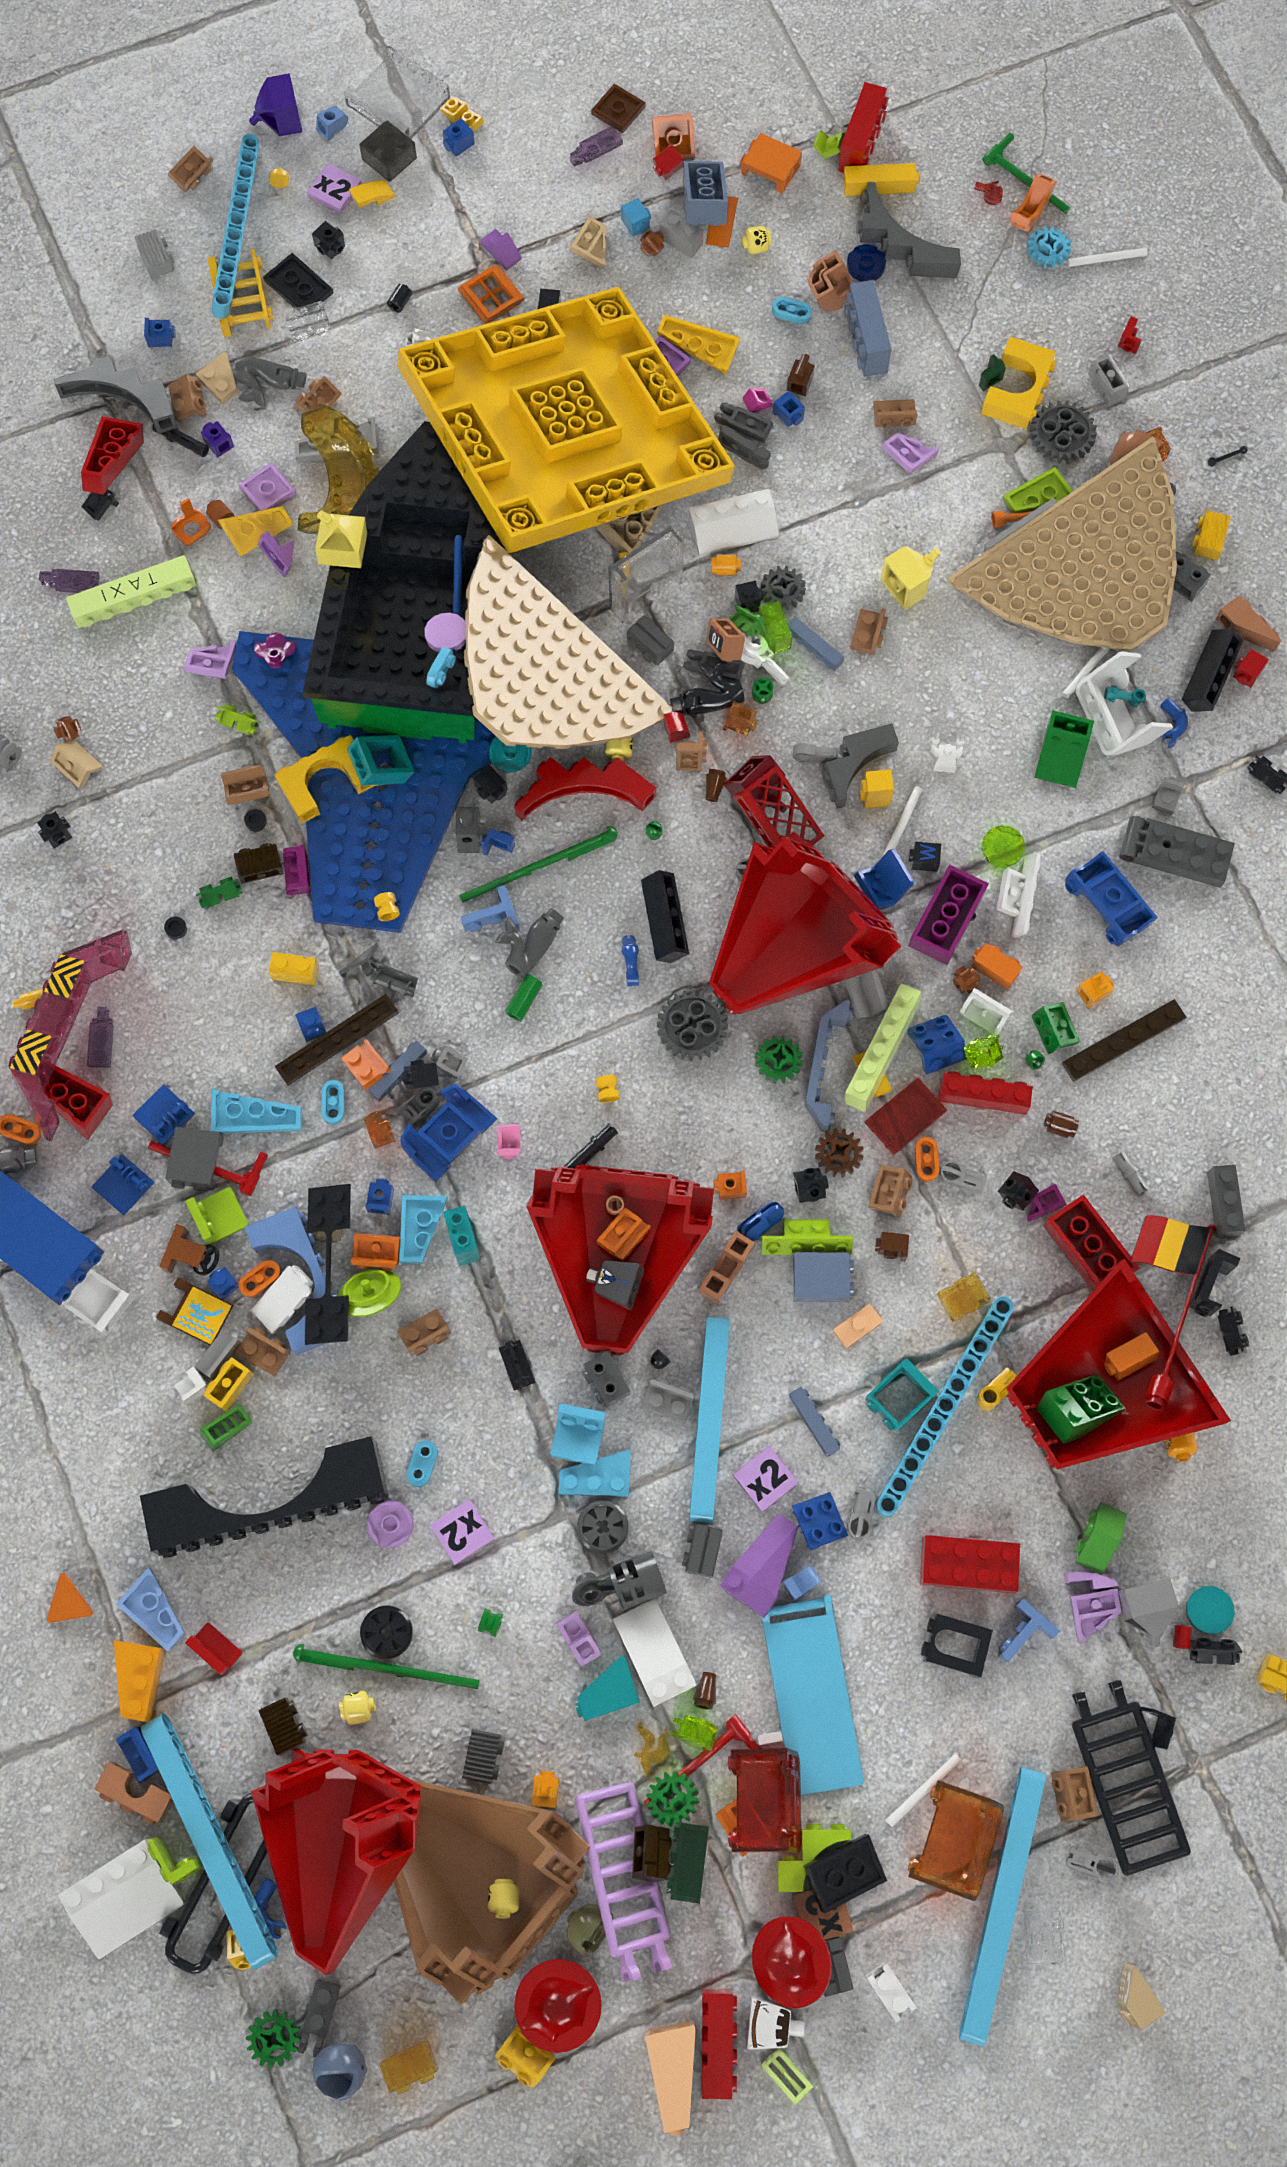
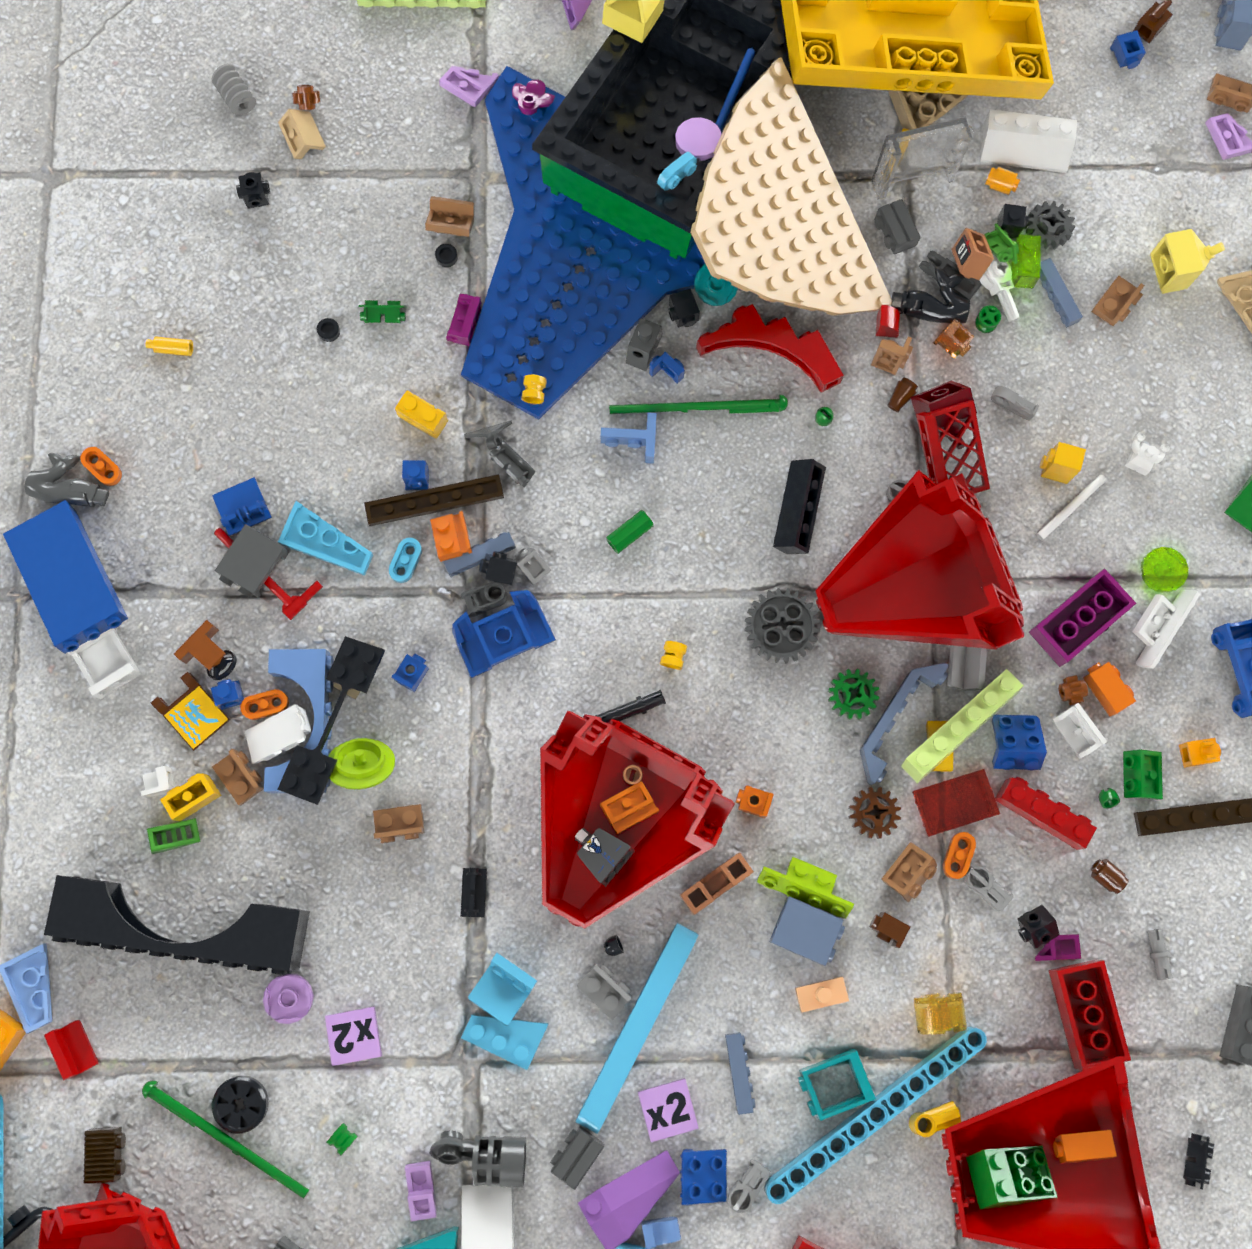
camera: 20 degrees right, 5 degrees up
(54, 1019) = (172, 374): clear pink slope -> none
(77, 1101) = (161, 456): red wedge -> none
(100, 1040) = (213, 410): clear purple hinge -> none
(122, 1184) = (175, 558): blue hinge -> none
(217, 1215) = (249, 626): lime bracket -> none
(217, 1354) = (195, 762): light grey panel -> none
(246, 721) = (462, 144): lime hinge -> none
(258, 863) = (431, 298): dark brown brick -> none
(295, 778) = (499, 229): yellow arch -> none
(357, 1707) = (181, 1167): light yellow head -> none
(367, 772) = (568, 242): teal window -> none
(375, 1251) = (384, 724): orange bracket -> none
(378, 1130) = (436, 605): clear orange brick -> none
(418, 1224) = (436, 714): medium azure wing -> none
(422, 1463) = (343, 952): medium azure plate -> none
(461, 1235) = (471, 753): teal window -> none
(509, 1141) = (557, 667): bright pink bracket -> none
(538, 941) = (667, 480): dark grey piece -> none
(588, 1529) = (504, 1094): dark grey wheel -> none
(604, 1380) = (556, 945): dark grey brick -> none
(619, 748) = (823, 322): light yellow head -> none
(630, 952) = (751, 529): blue piece -> none
(744, 421) = (1079, 45): dark grey hinge -> none
(744, 448) = (1068, 71): dark grey hinge -> none
(757, 399) = (1100, 29): dark pink slope -> none
(761, 1221) = (769, 850): blue arm -> none
(810, 1185) = (832, 834): black brick -> none
(856, 752) = (1055, 417): dark grey arch -> none
(885, 881) = (1033, 558): blue bracket -> none
(925, 856) = (1082, 549): black brick -> none
(984, 1052) = (1061, 771): clear neon green brick -> none
(1179, 1250) = (1175, 1054): flag -> none
(1217, 1263) = (1214, 1089): black panel -> none

